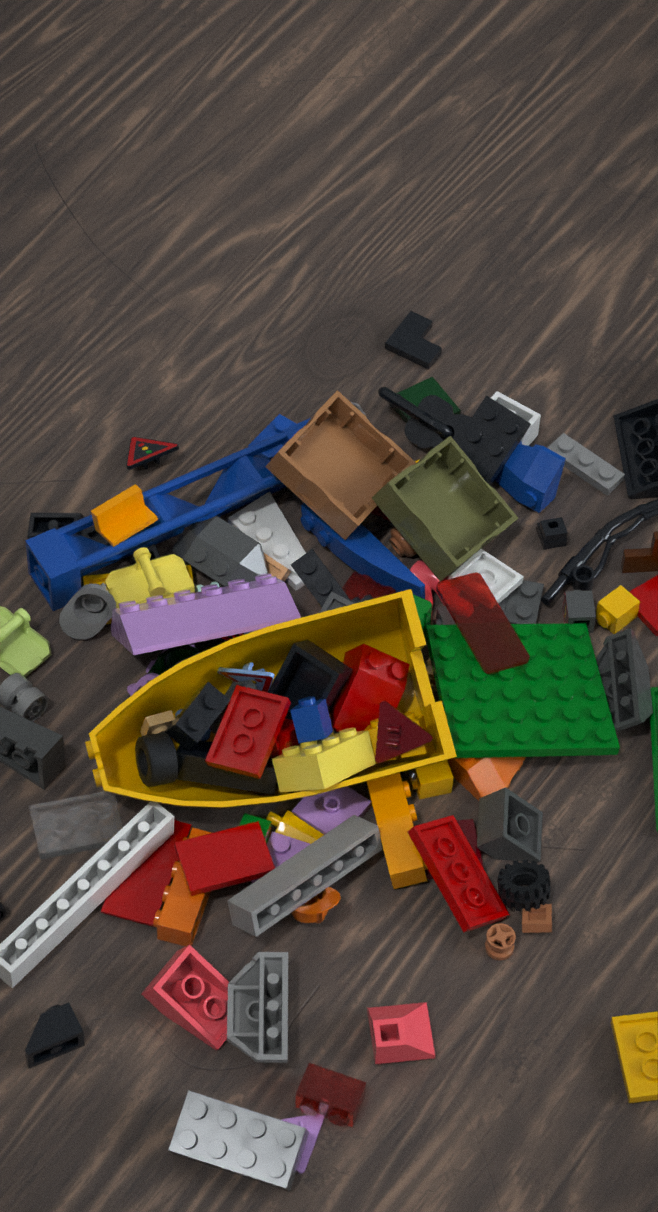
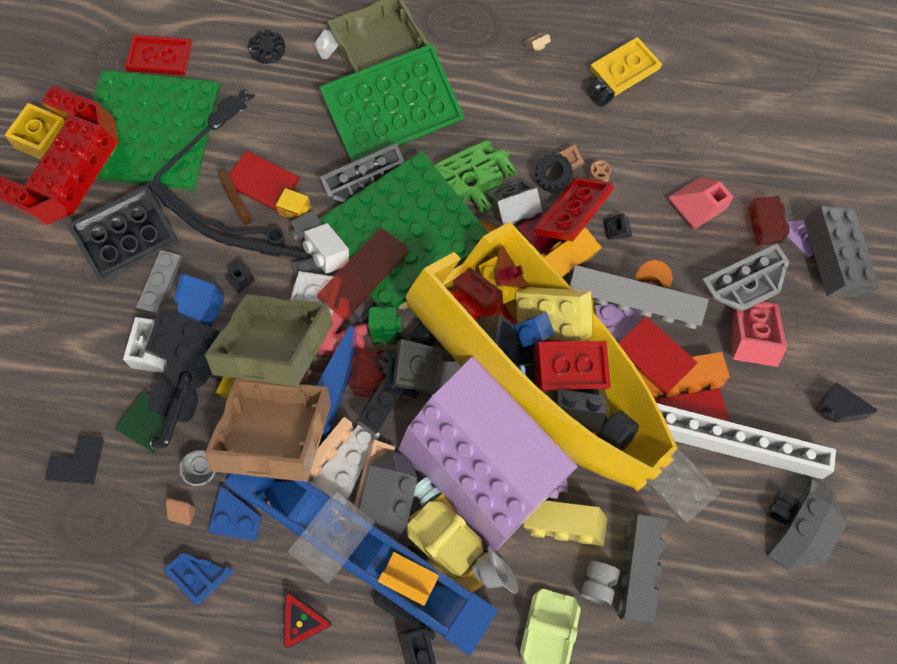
camera: 115 degrees left, 15 degrees up
(95, 698) = (568, 522): none -> light yellow wedge
(203, 476) = (331, 537): none -> clear plate
(241, 391) = (196, 577): none -> blue wing
(300, 525) = (329, 447): none -> light nougat plate
(315, 401) = (180, 511): none -> nougat slope
(400, 693) = (479, 289): none -> clear red panel
(415, 931) = (618, 227): none -> black slope
(538, 607) = (326, 248): none -> white brick
(558, 810) = (476, 168): none -> bright green piece
(620, 1002) = (600, 91): none -> black wheel

